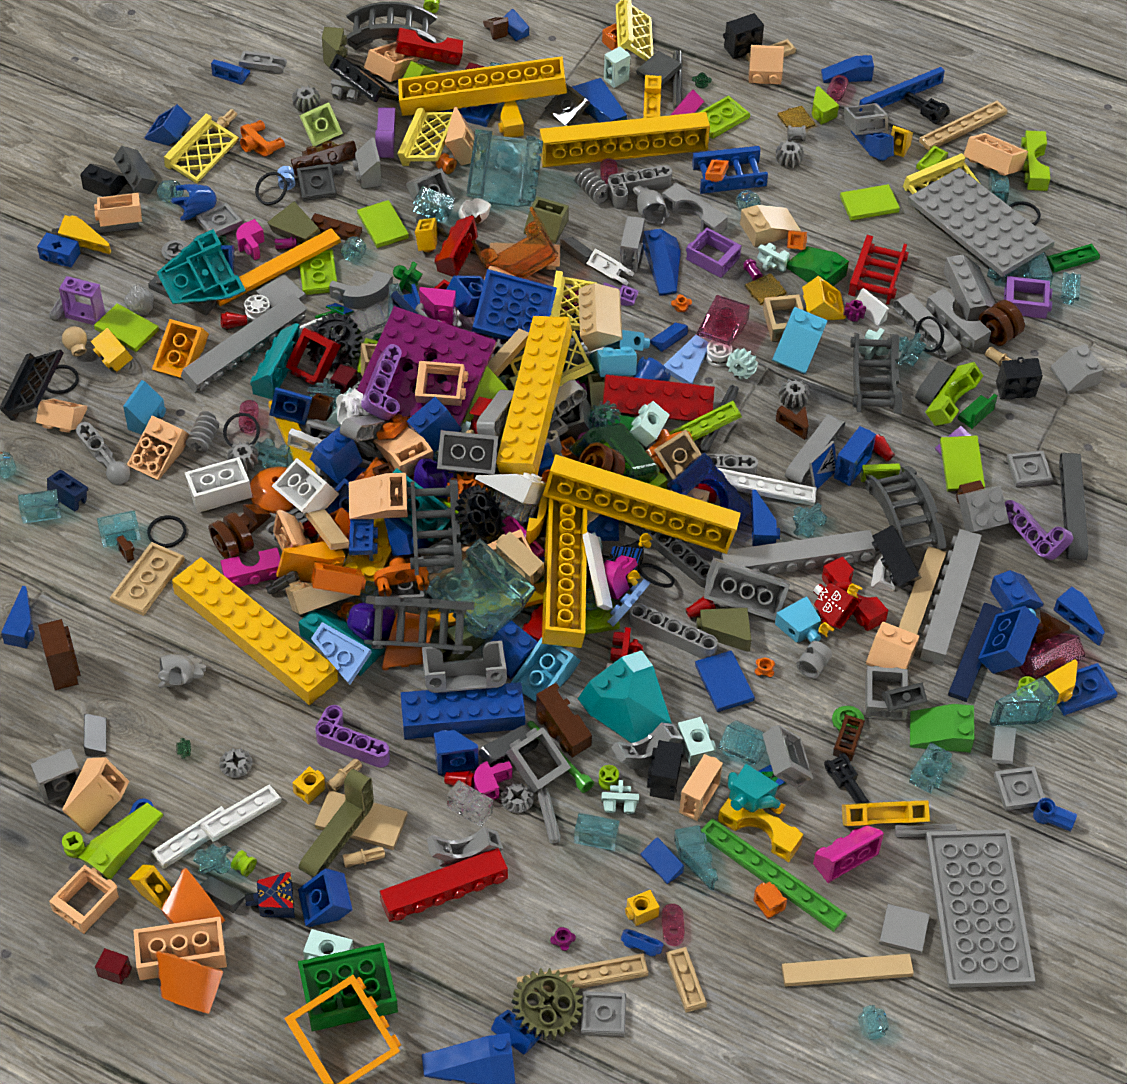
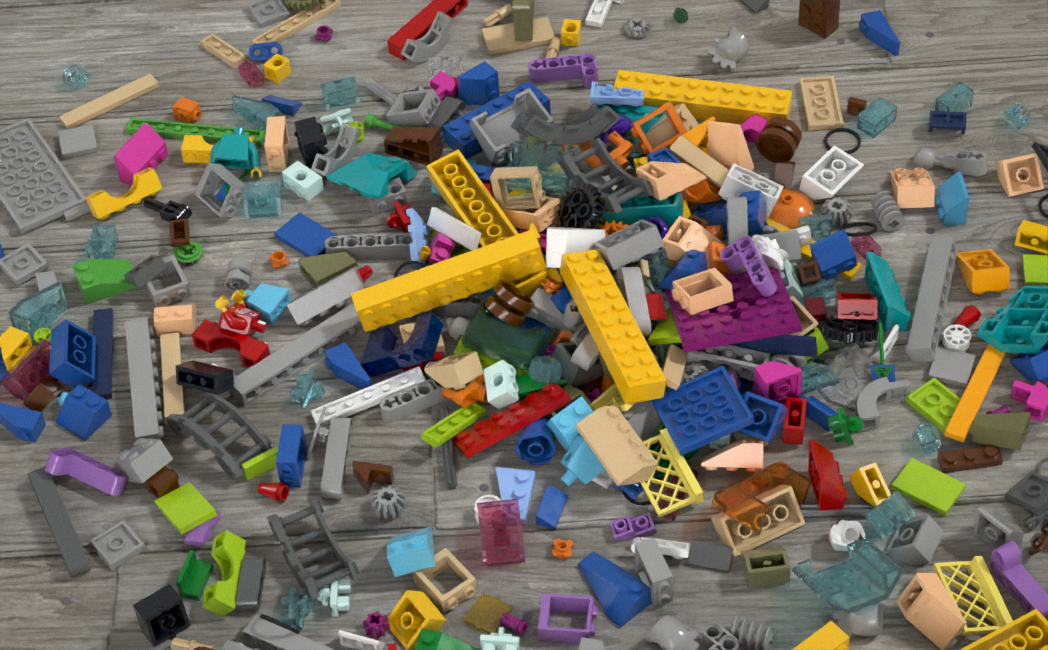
camera: 155 degrees right, 5 degrees down
(742, 363) = (455, 499): light aqua gear -> none

